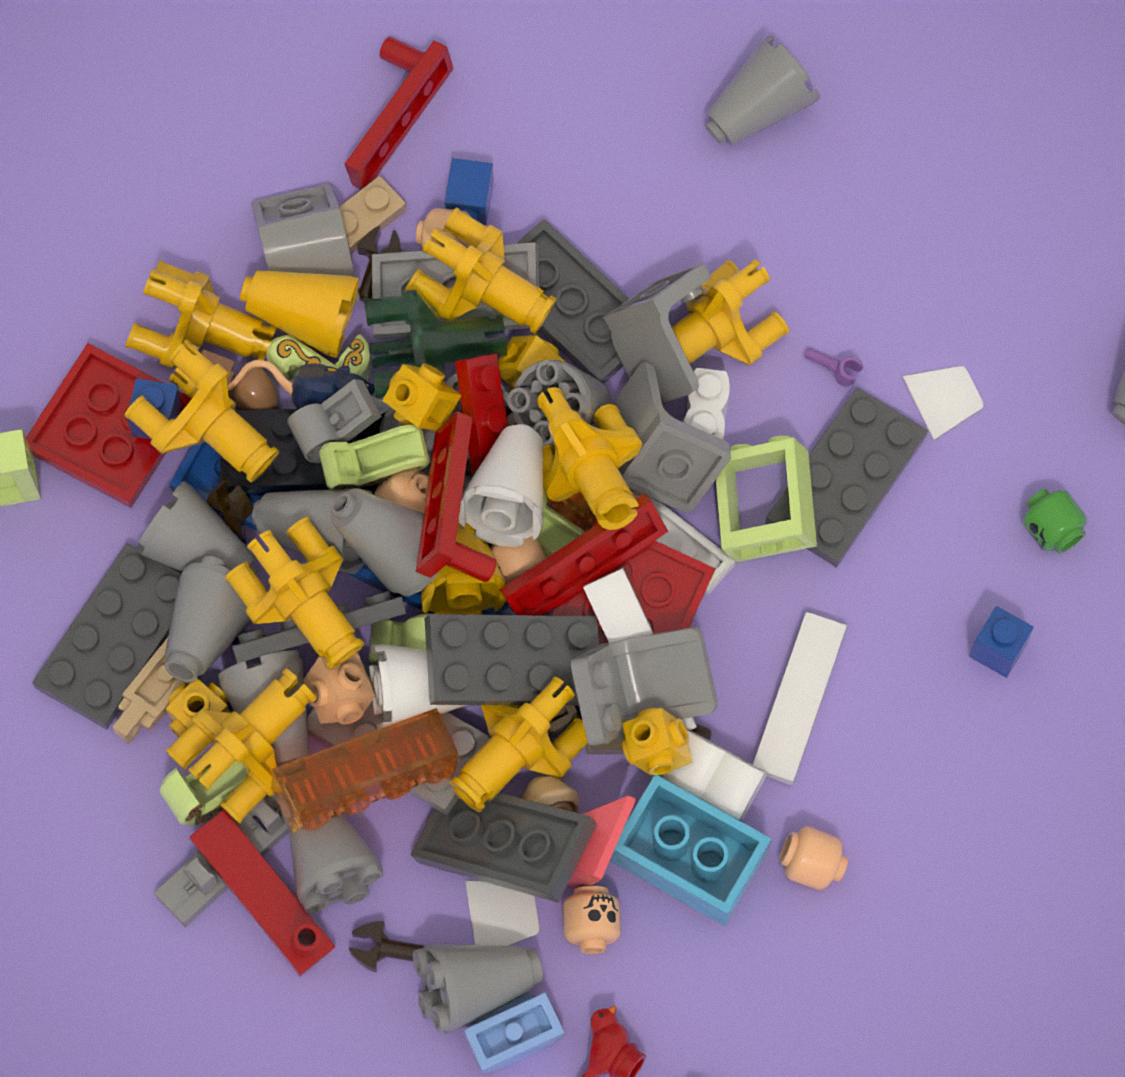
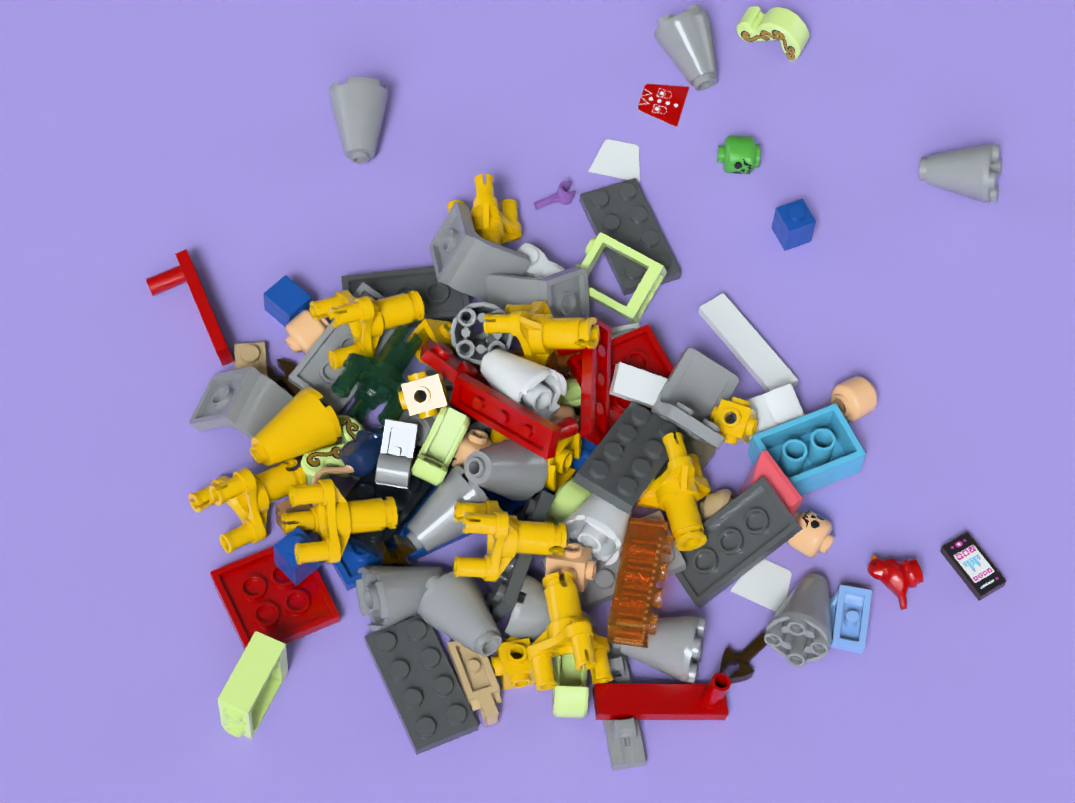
camera: 60 degrees left, 10 degrees down
(1069, 393) = (663, 102): none -> red sticker

